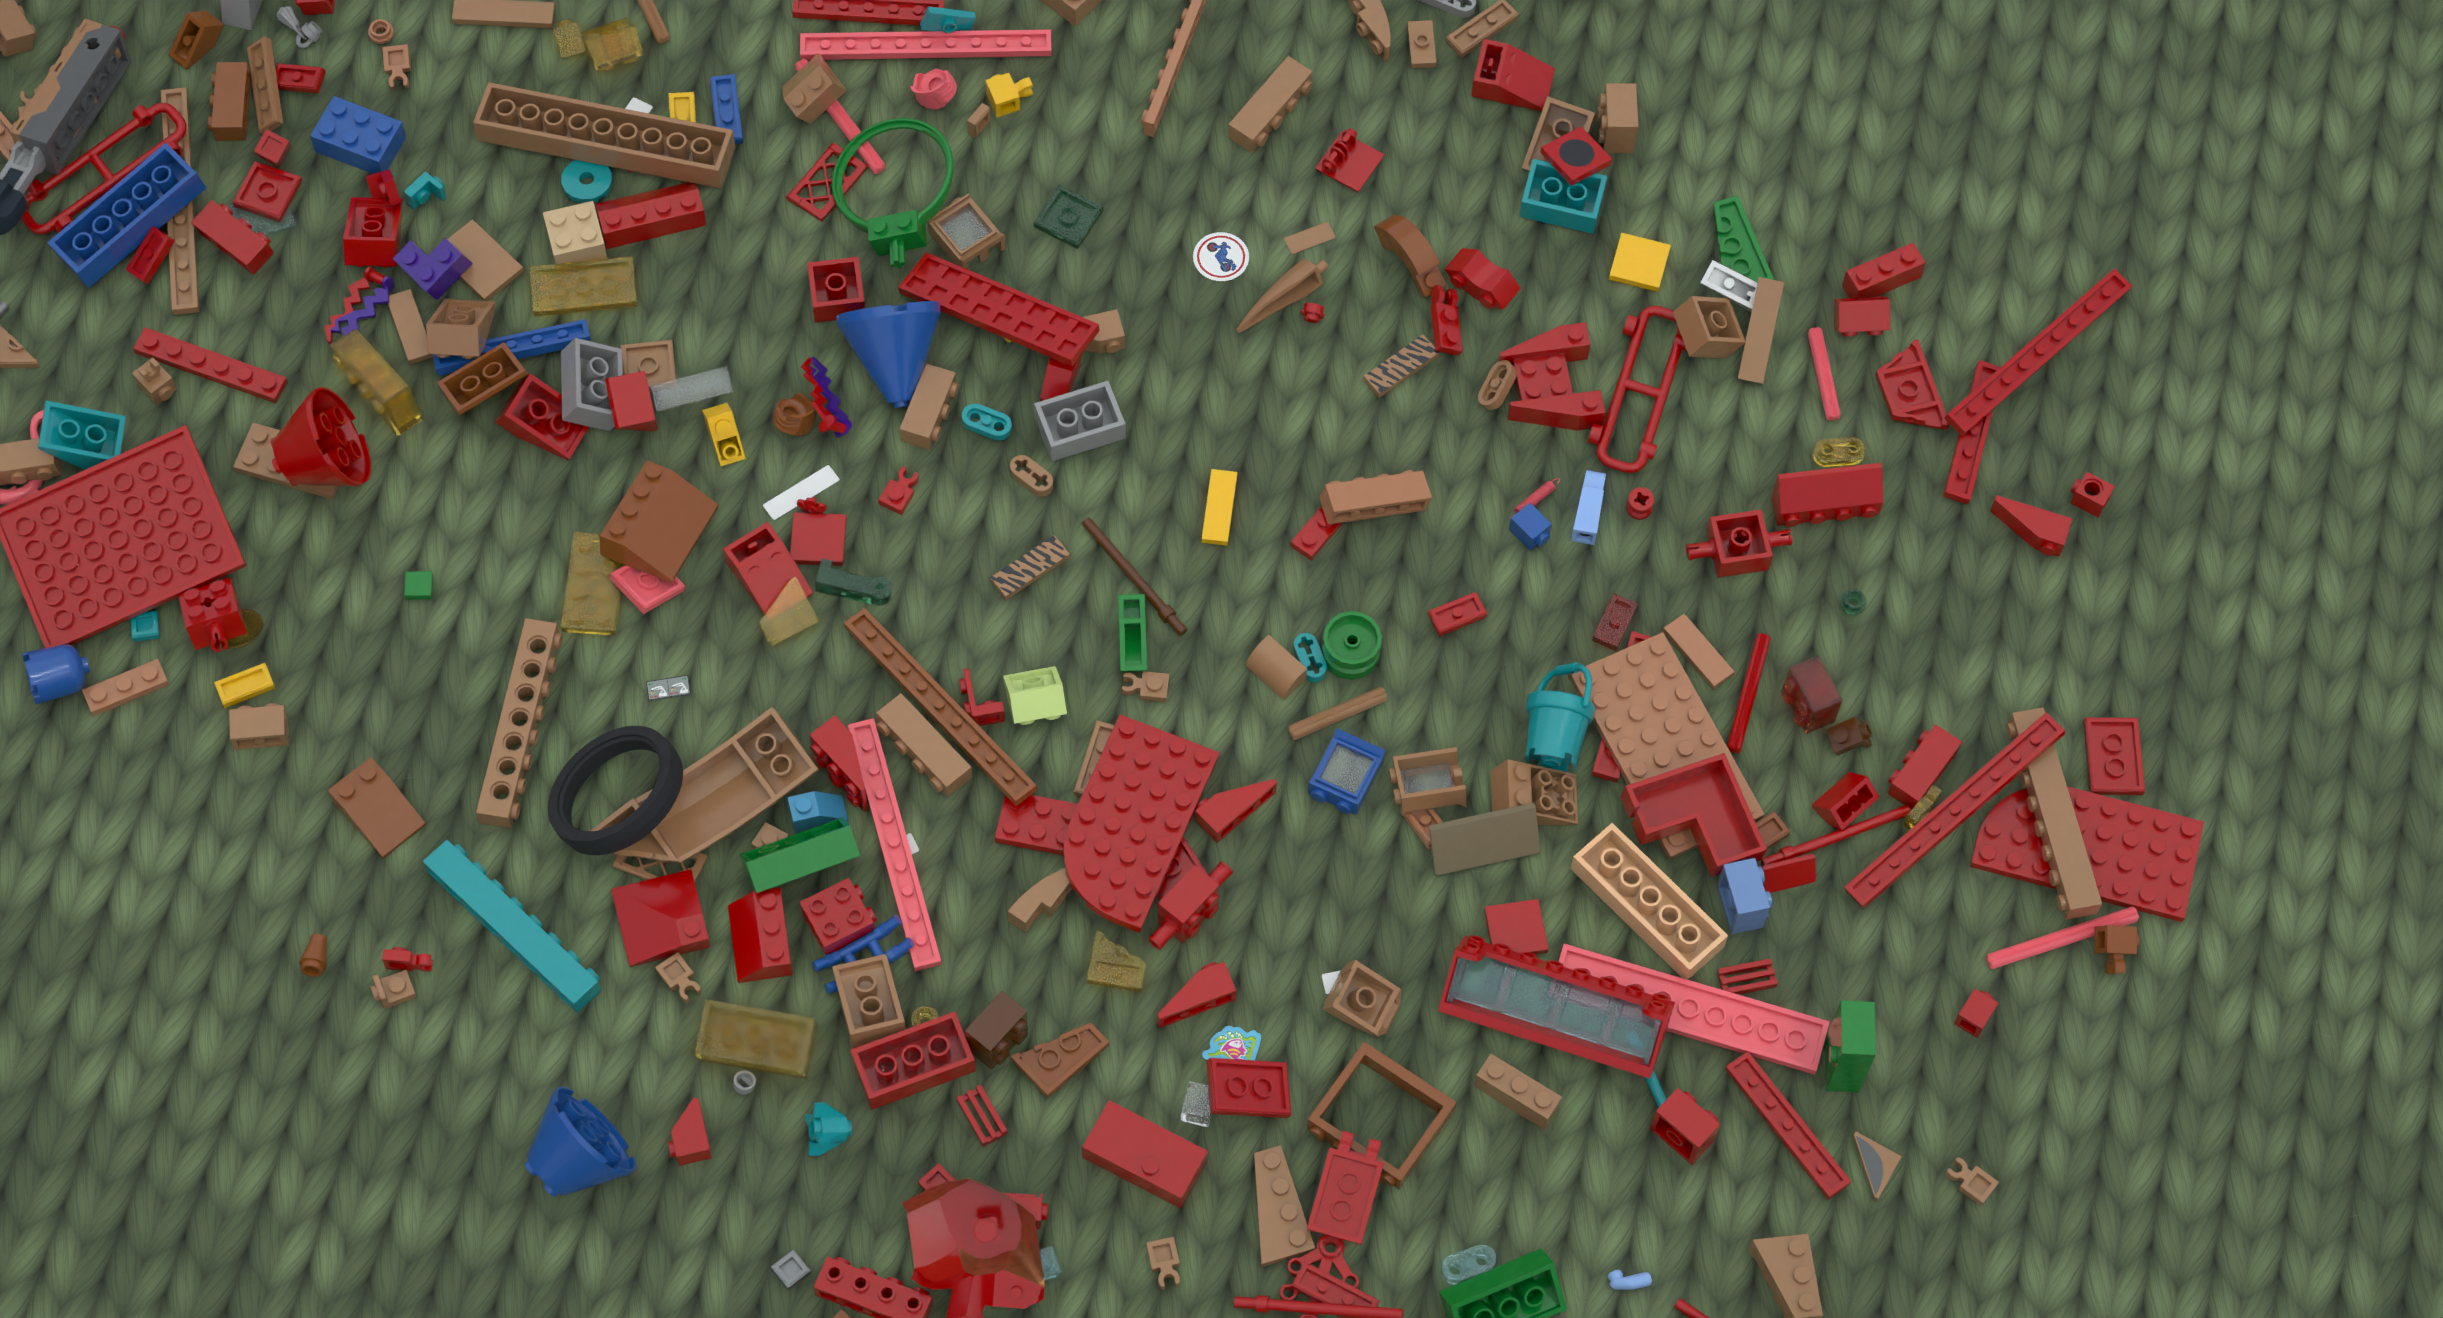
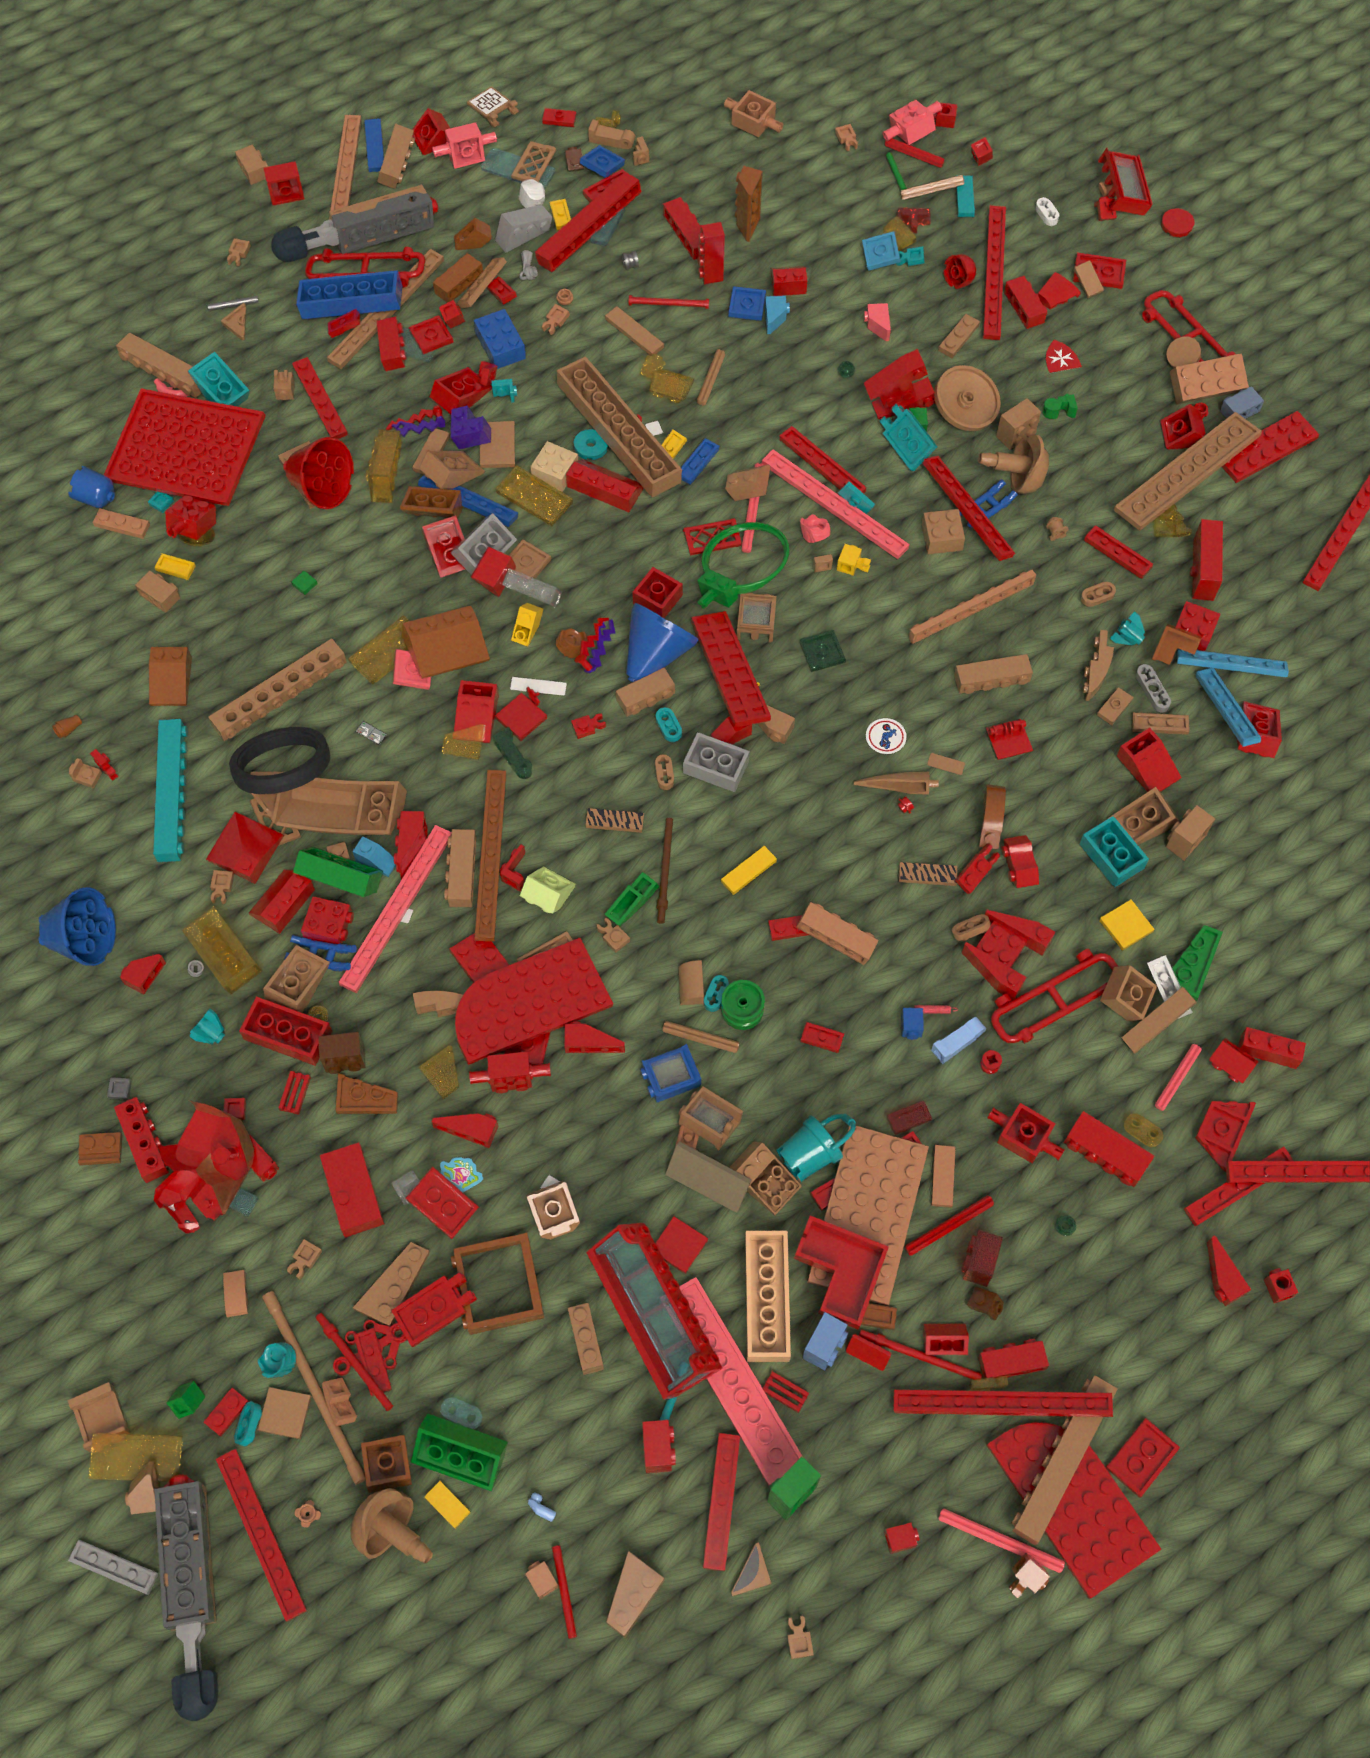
camera: 45 degrees right, 0 degrees up
(1576, 155) = (1140, 833): red tile -> none

